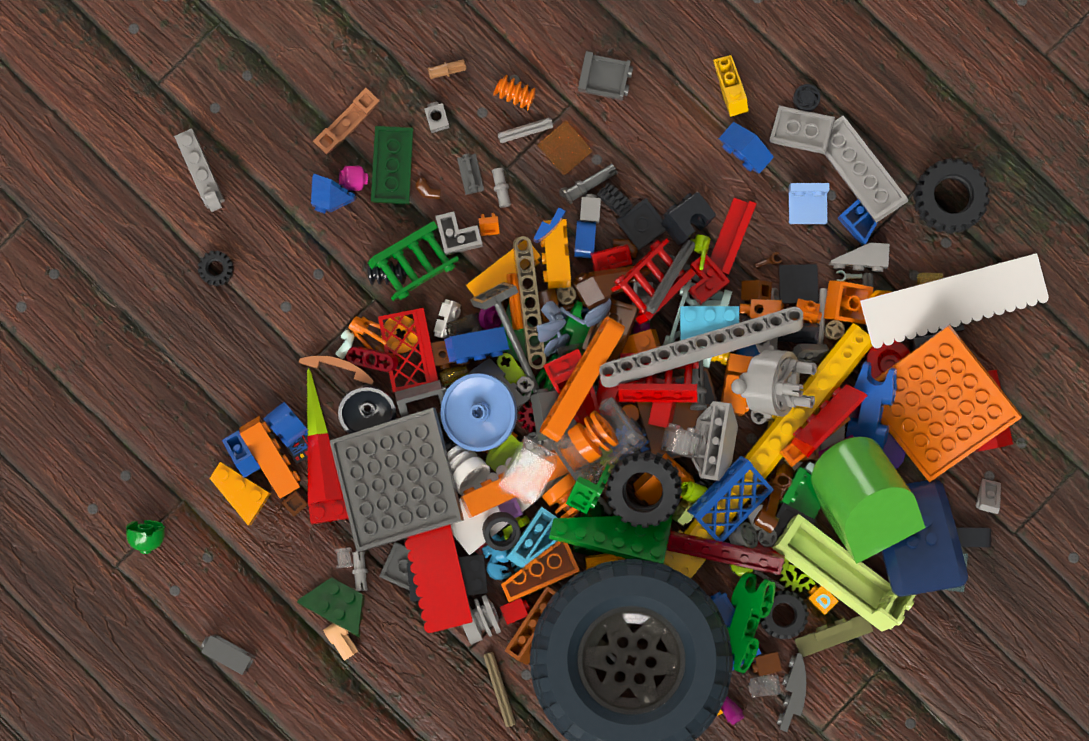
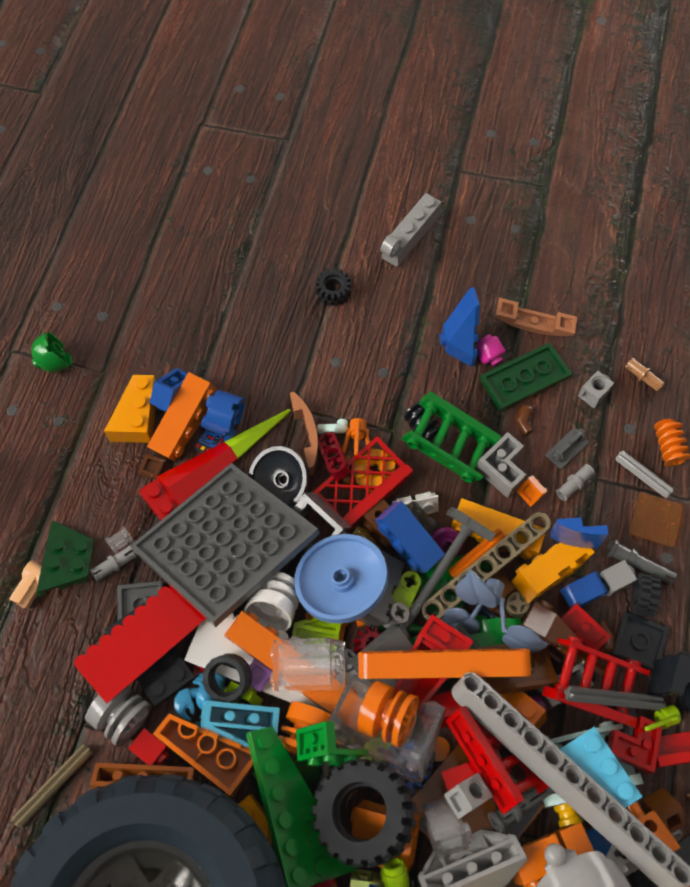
camera: 60 degrees right, 20 degrees down
(673, 417) = (468, 795): none -> light grey brick

